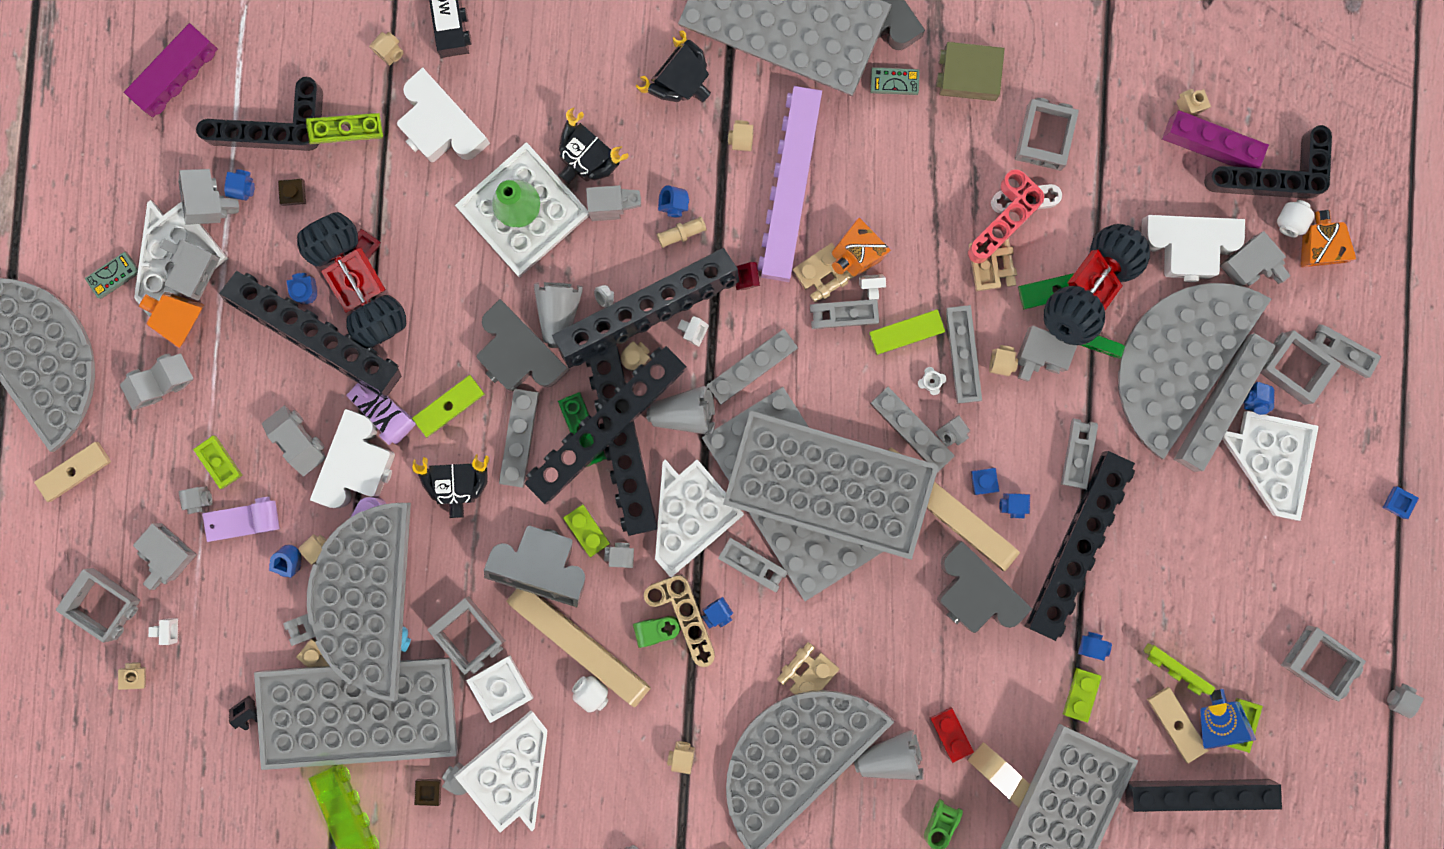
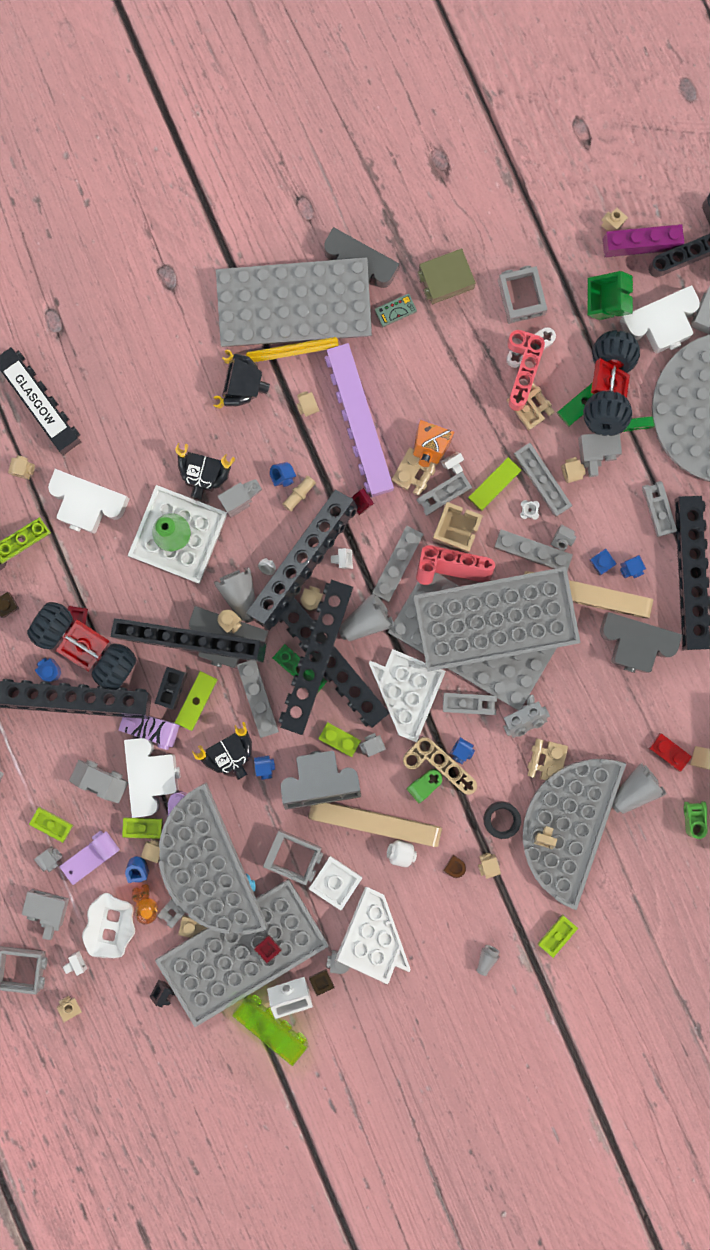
camera: 30 degrees left, 0 degrees up
(214, 597) = (97, 922): none -> white piece
(274, 608) = (145, 907): none -> clear orange piece
(316, 516) = (142, 827): none -> lime plate
(382, 791) = (289, 997): none -> white brick
(385, 724) = (267, 949): none -> dark red plate
(427, 377) = (171, 688): none -> black brick
(473, 333) = (189, 640): none -> black brick
(486, 518) = (264, 766): none -> blue plate
(529, 335) = (229, 621): none -> tan plate
(643, 740) = (455, 867): none -> reddish brown tile
(723, 732) = (516, 817): none -> black tyre
(756, 67) = (293, 349): none -> yellow axle
(759, 761) = (545, 839): none -> tan tile
(807, 614) = (526, 719): none -> light grey brick
(814, 398) = (453, 563): none -> coral beam
(837, 361) = (455, 529): none -> tan piece
(1145, 184) = (610, 295): none -> green piece

